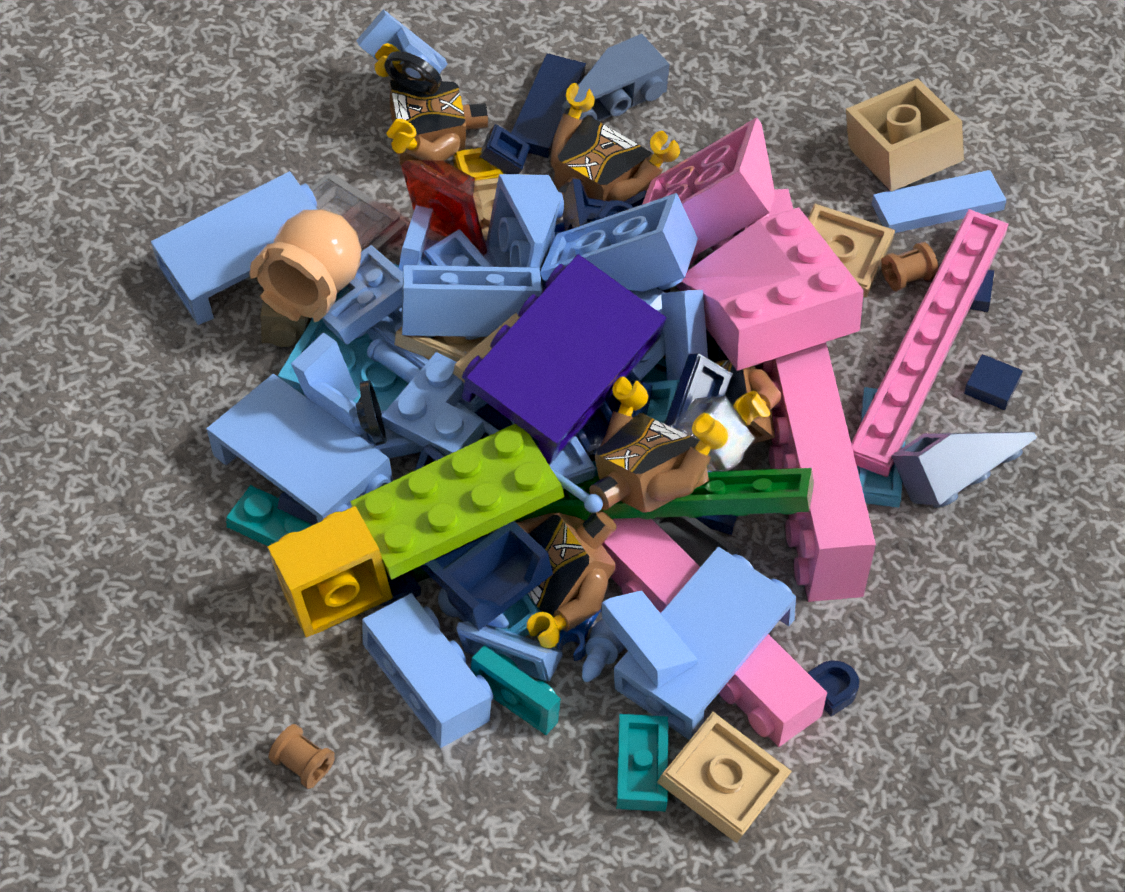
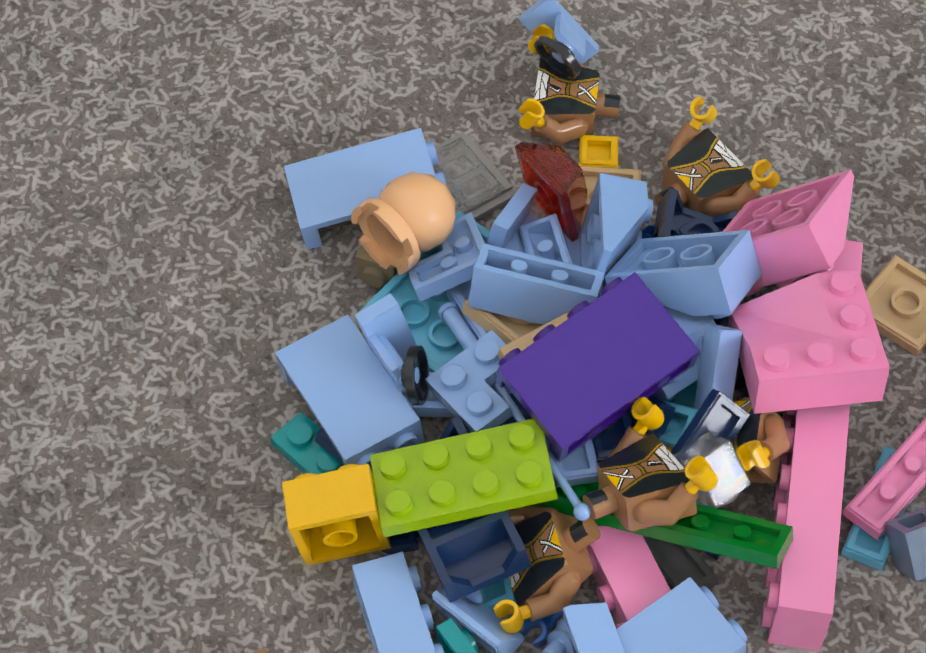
camera: 20 degrees right, 5 degrees up
(504, 150) = (625, 144): dark blue tile -> none
(544, 103) = (673, 108): dark blue tile -> none
(623, 79) = (752, 97): sand blue slope -> none

